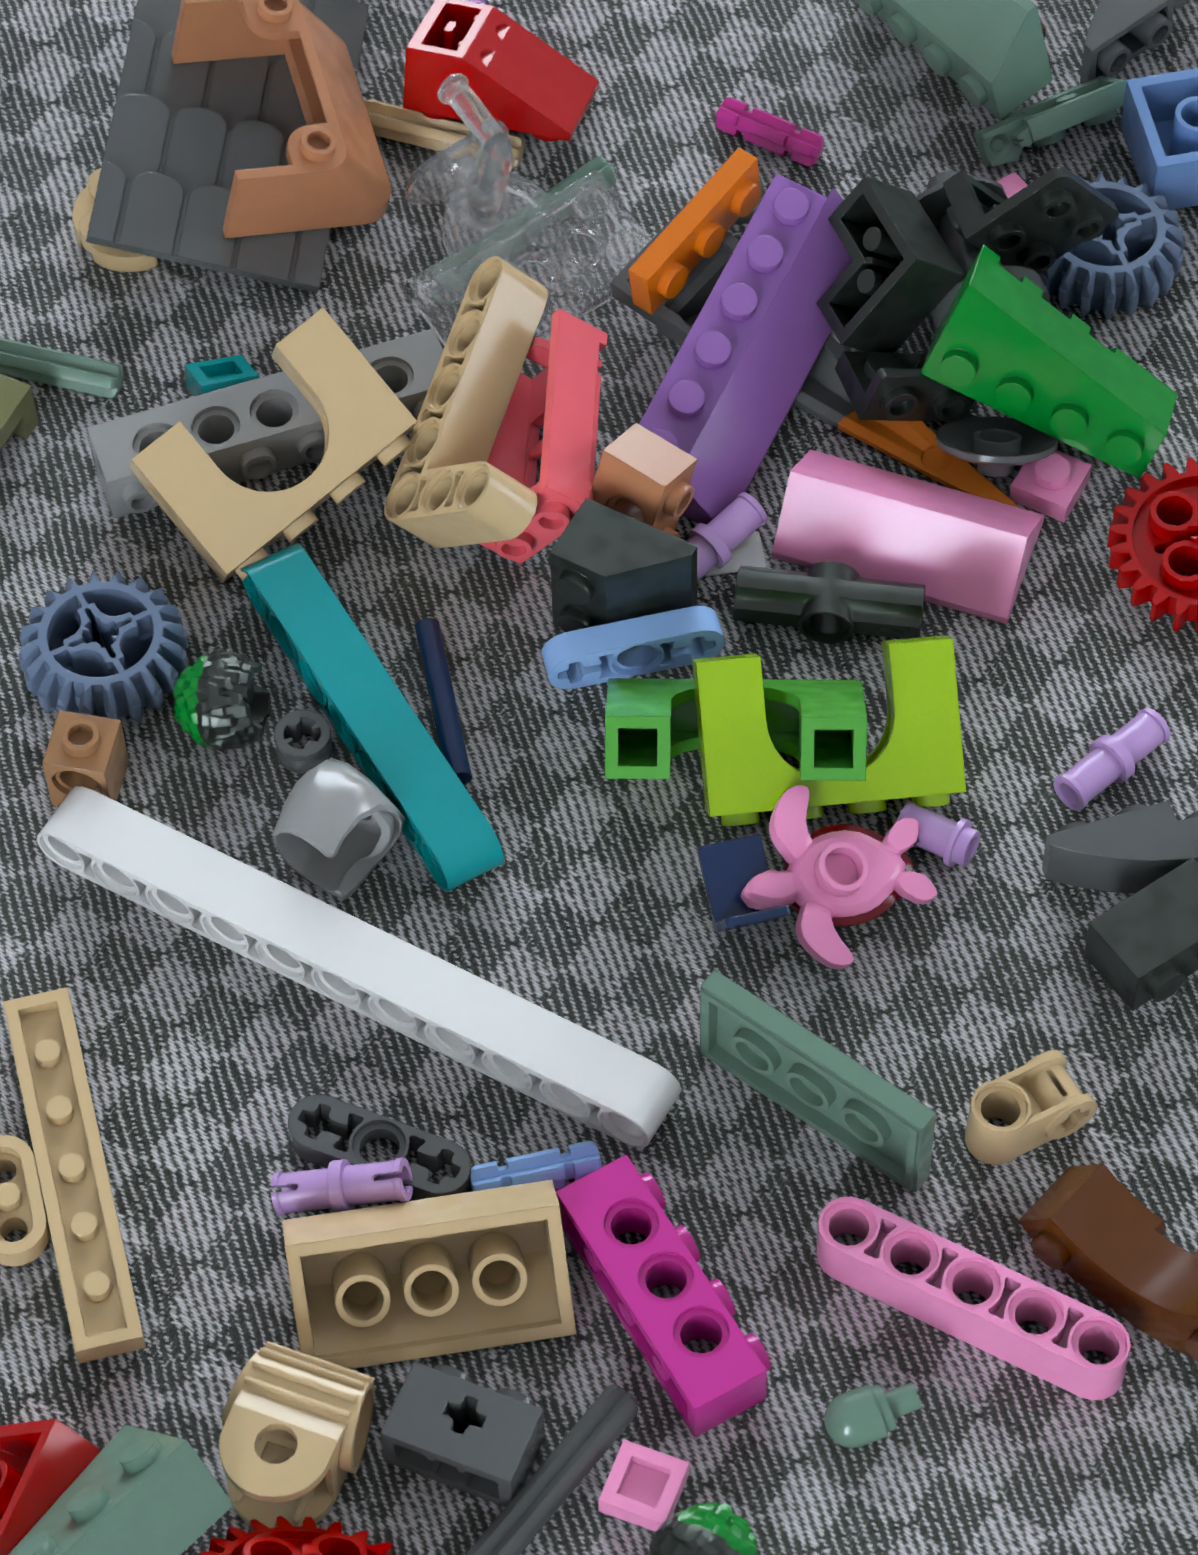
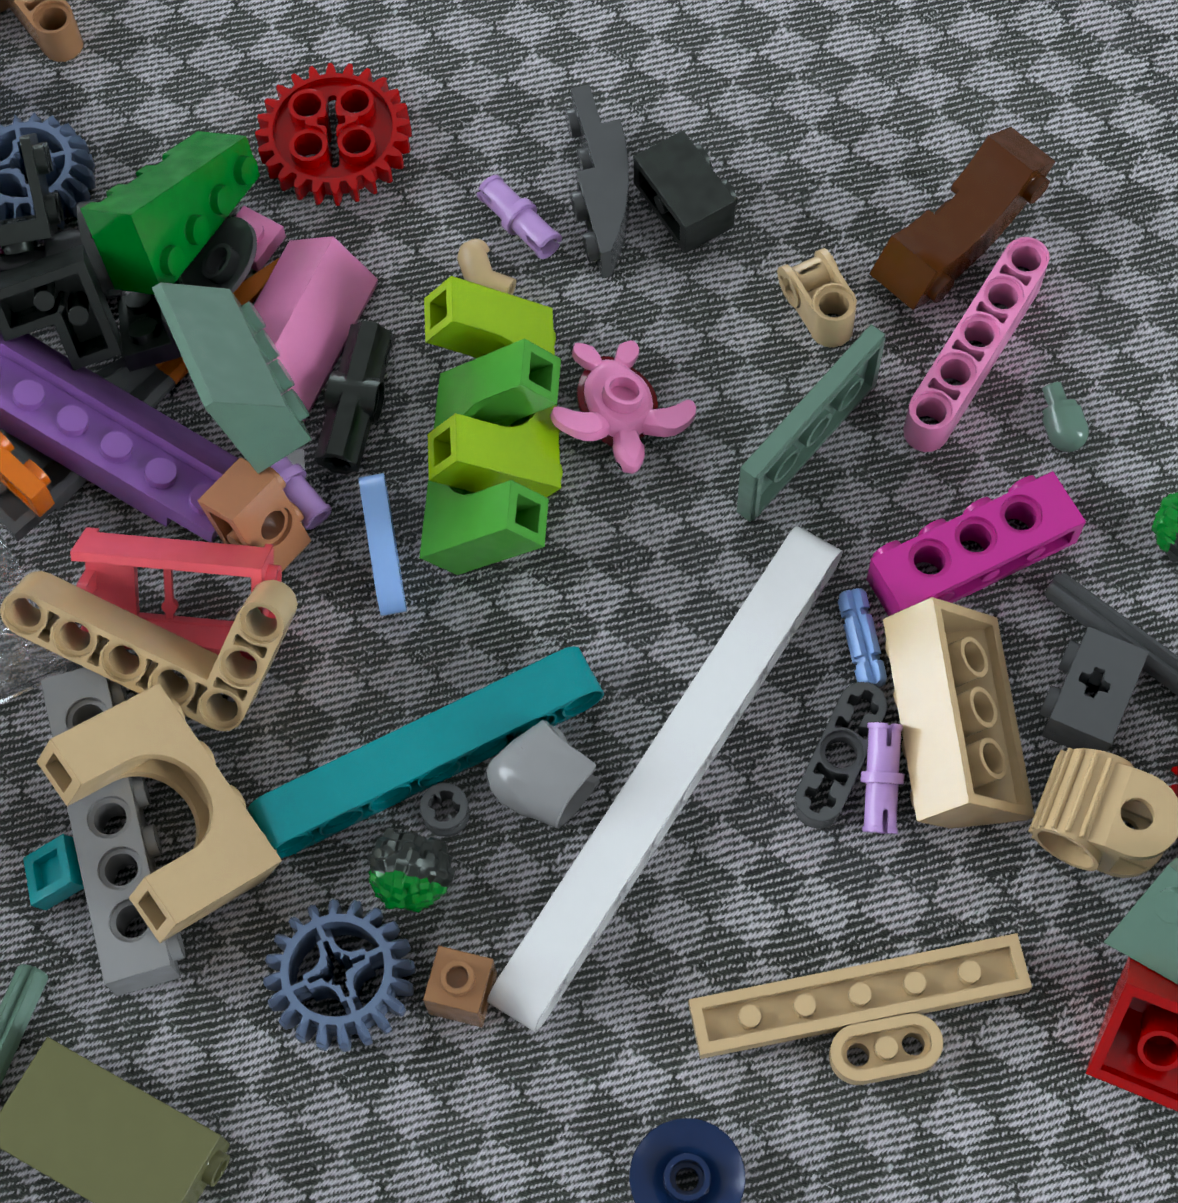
camera: 85 degrees left, 10 degrees up
(442, 697) = (406, 697): dark blue bar -> none
(618, 570) = (323, 544): pearl dark grey slope -> none
(643, 1486) = (1129, 570): bright pink plate -> none
(725, 872) = (607, 484): dark blue bracket -> none
(799, 424) = (235, 371): none -> sand green slope
(943, 836) = (583, 328): lavender pin -> none
(1021, 724) = (477, 268): none -> tan arm

